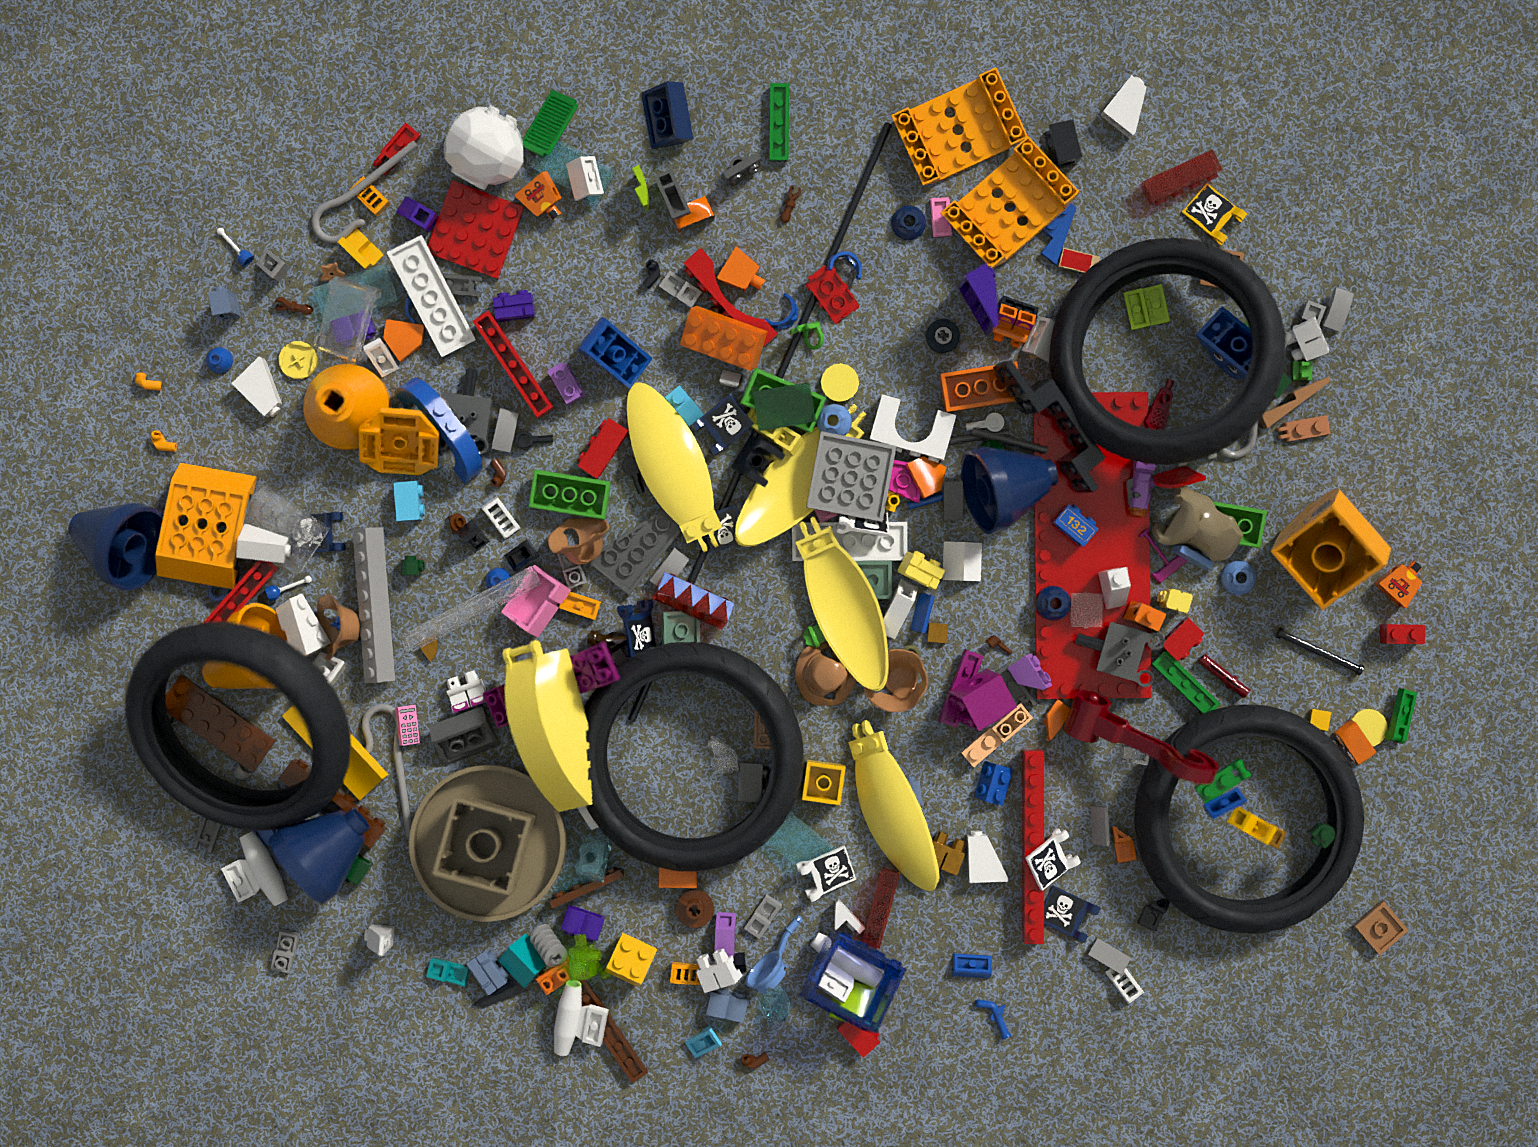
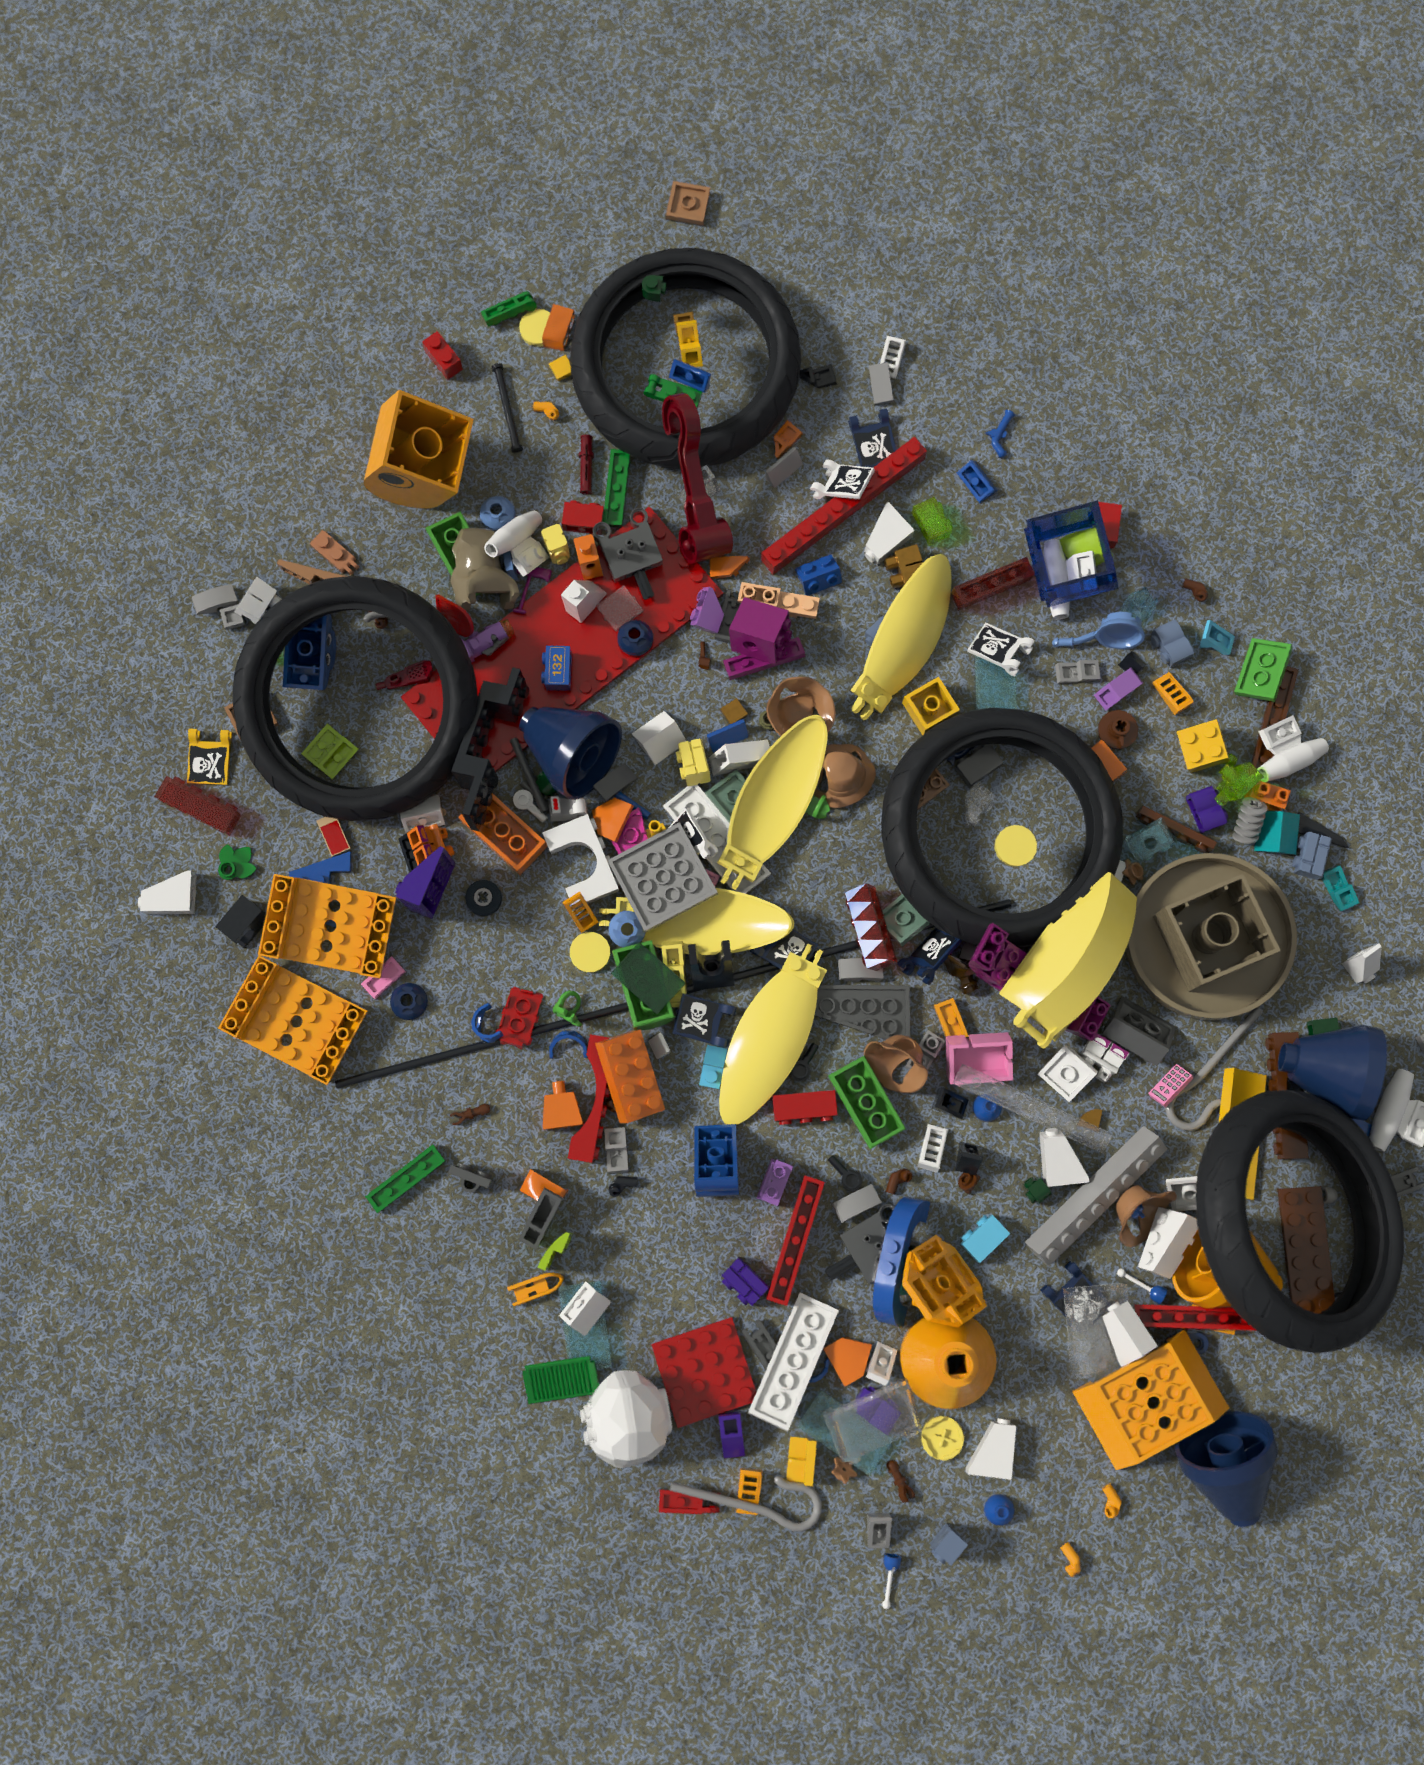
camera: 125 degrees left, 10 degrees down
(418, 599) = (1059, 1161): none -> white slope
(475, 657) = (1067, 1072): none -> white tile
(540, 196) = (630, 1335): orange torso -> none
(581, 834) = (1133, 871): none -> medium nougat plate
(627, 160) = (540, 1286): none -> light orange piece
(652, 1056) = (1263, 669): none -> bright green plate
(664, 750) = (1015, 845): none -> light yellow tile
(667, 115) = (473, 1281): dark blue slope -> none
(718, 972) = (1154, 669): white hips -> none
(842, 914) = (1023, 608): white slope -> none
(866, 394) = (586, 922): none -> light orange slope
(960, 445) = (567, 809): none -> light grey leg
(967, 904) = (932, 521): none -> clear neon green brick
(1115, 176) = (236, 859): none -> green plate
(1201, 573) = (517, 538): none -> white plate
(1293, 683) = (548, 408): none -> light orange arm
(1301, 370) = (286, 587): bright green tile -> none
(1400, 583) = (402, 379): orange torso -> none

